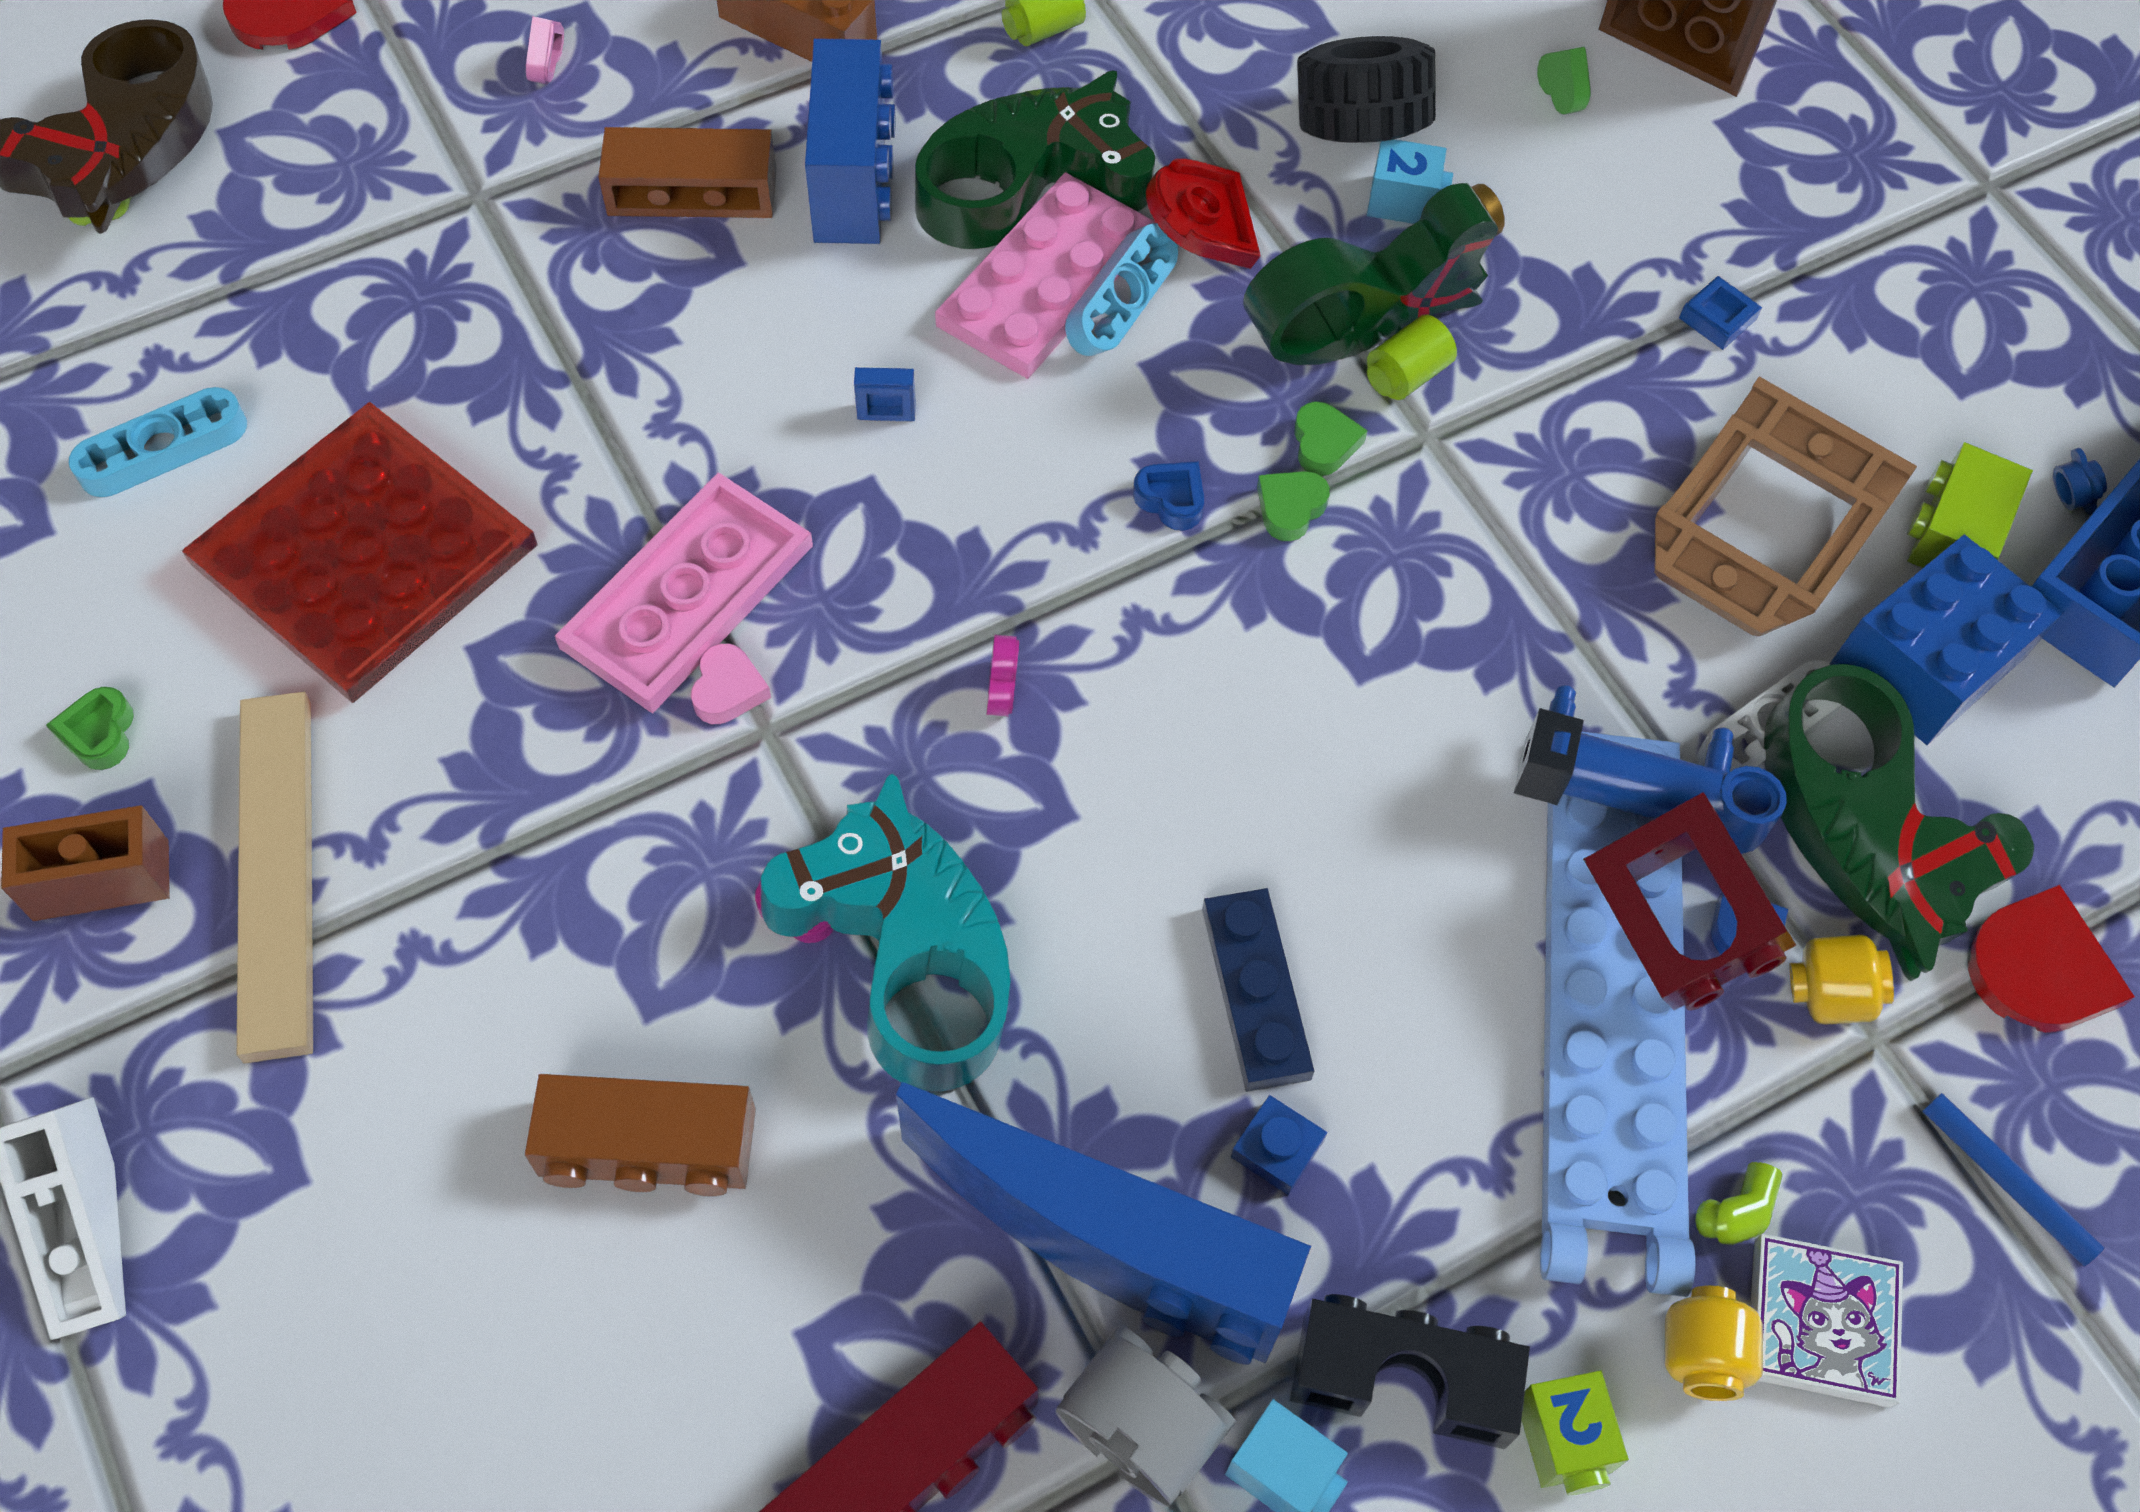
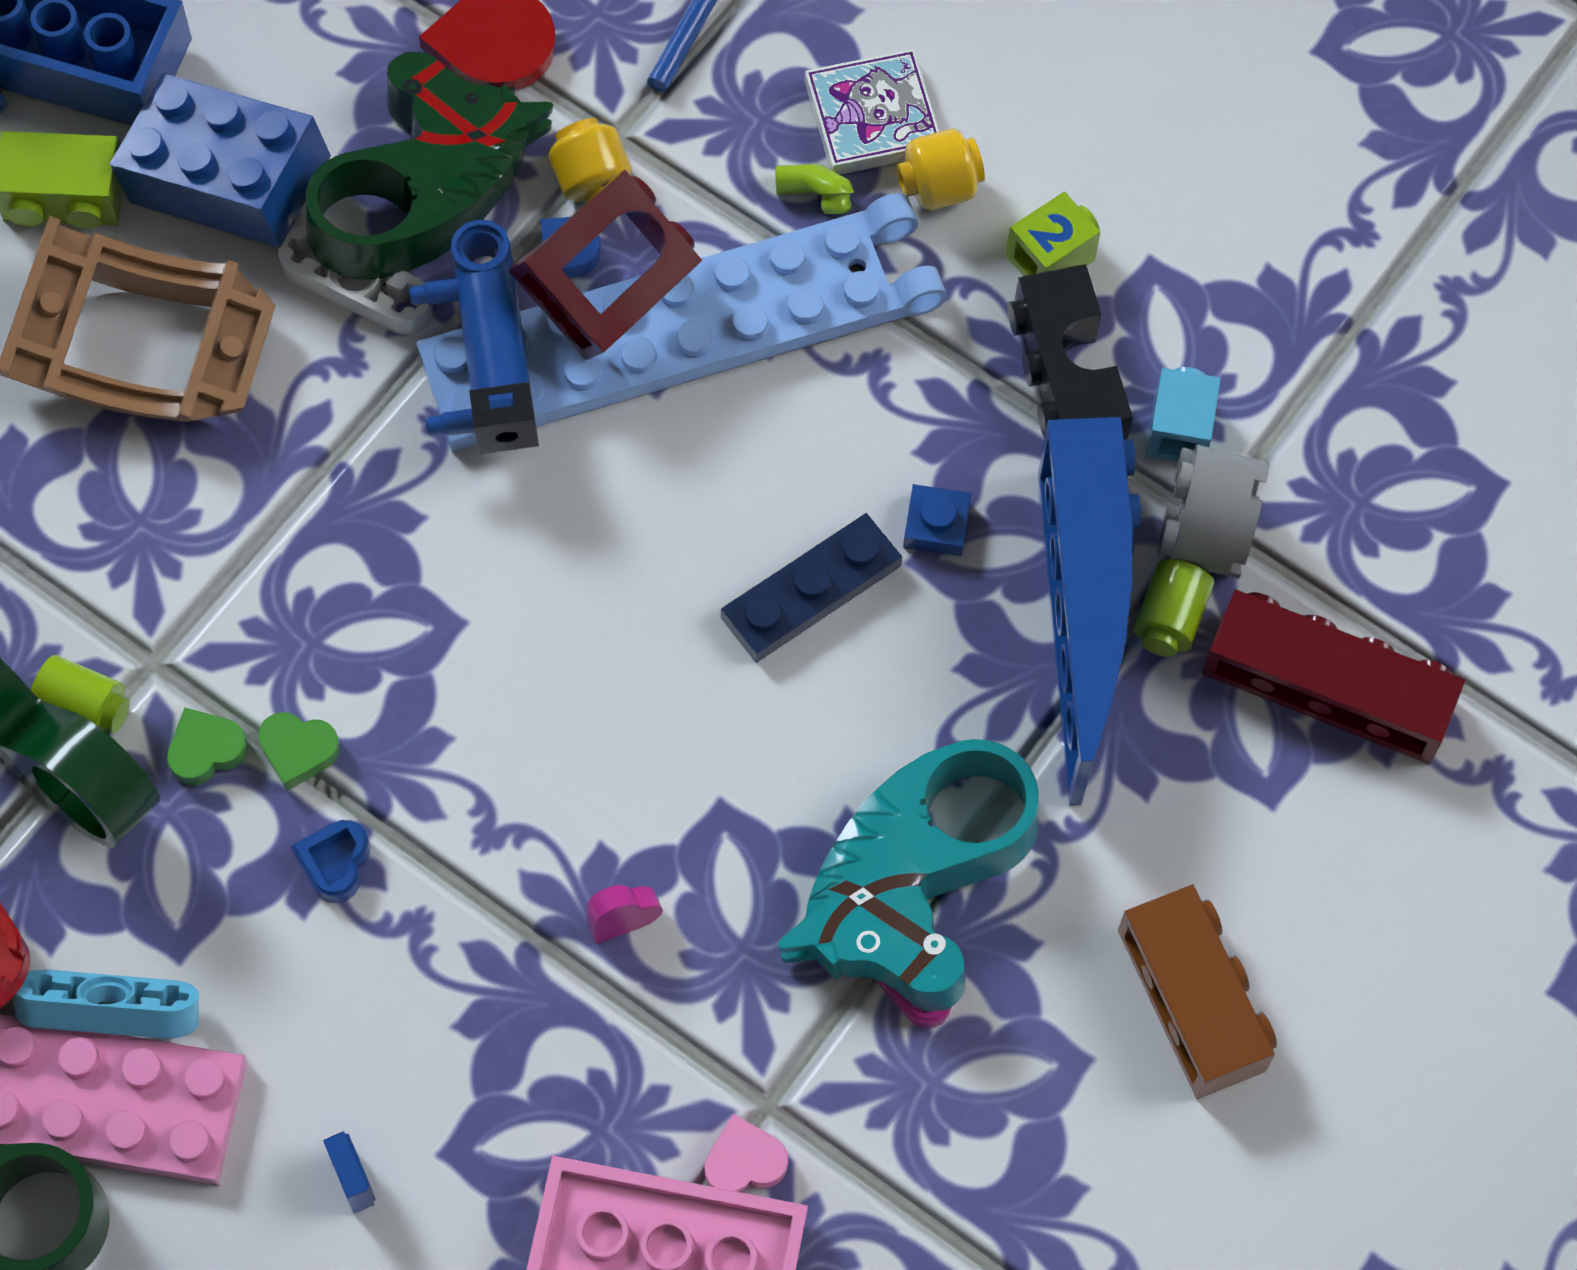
camera: 115 degrees left, 5 degrees up
(1056, 1326) = (1173, 607): none -> lime brick

